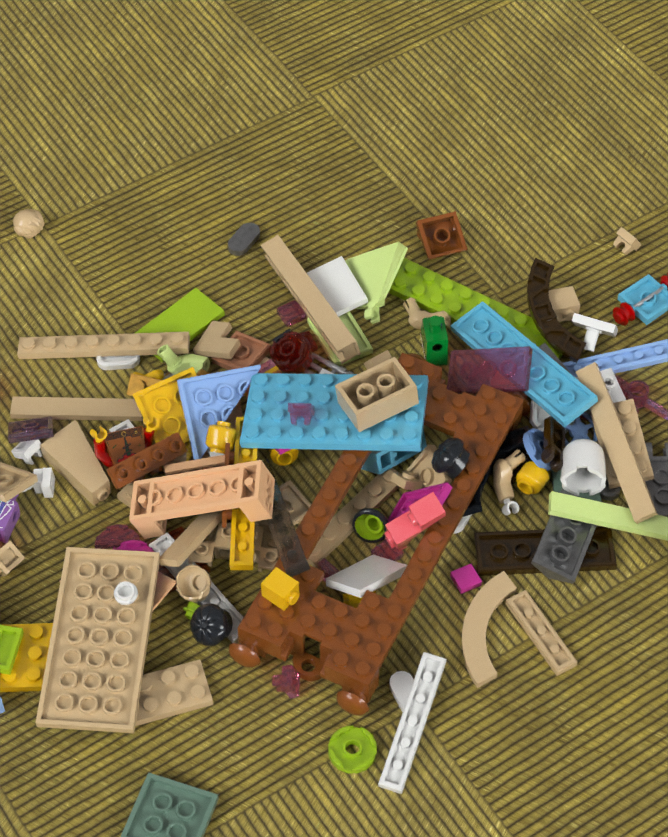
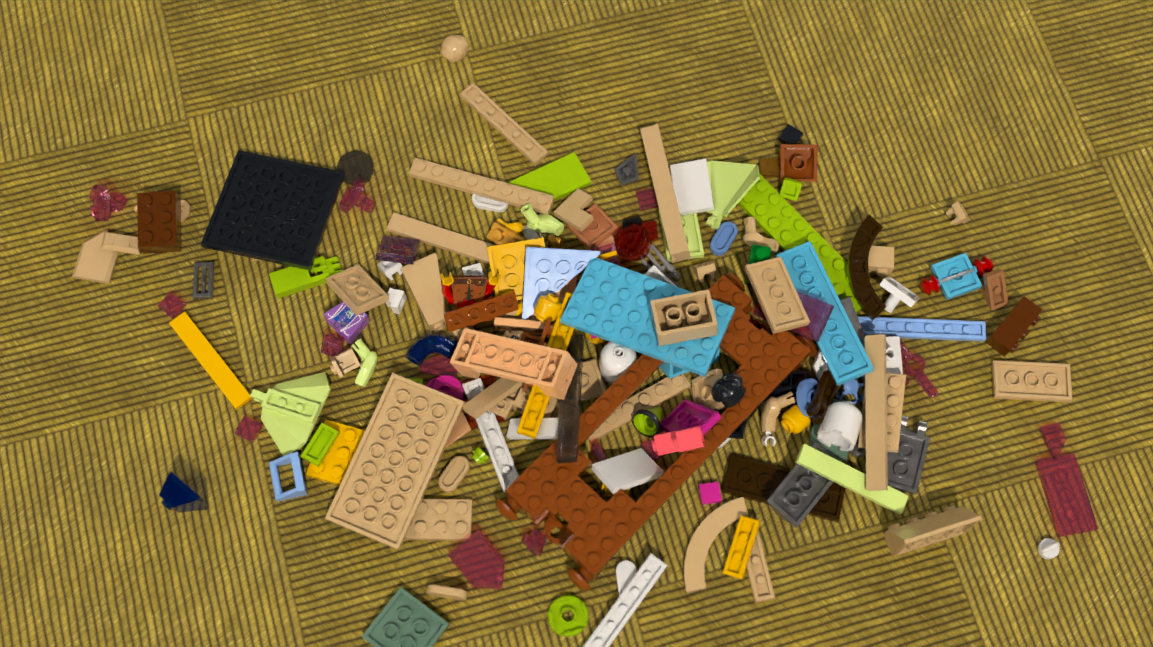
camera: 15 degrees right, 15 degrees up
(33, 553) = (368, 363): none -> yellowish green arm
(98, 515) = (429, 345): none -> clear blue cylinder
(108, 282) = (504, 124): none -> tan tile
(125, 593) = (426, 430): white plate -> none
(170, 640) = (454, 474): none -> tan tile
(193, 583) = (485, 434): tan hair -> none
(204, 763) = (446, 592): none -> tan tile
(210, 624) = (488, 473): black piece -> none
(231, 721) = (479, 562): none -> clear pink tile
(243, 239) = (630, 115): flat silver tile -> none
(260, 291) = (628, 171): none -> flat silver piece
(264, 556) = (547, 430): none -> white tile
(280, 589) = (548, 470): yellow brick -> none
(301, 410) = (618, 310): tile -> none
(312, 471) = (612, 364): none -> white cylinder
(388, 329) = (723, 238): none -> medium blue tile
(407, 480) = (689, 391): tan plate -> none
(414, 250) = (769, 167): none -> pearl gold tile
(422, 212) = (790, 135): none -> black tile
(442, 262) = (790, 189): none -> lime plate
(467, 356) = (777, 295): none -> tan tile
(521, 620) = (741, 547): none -> yellow tile

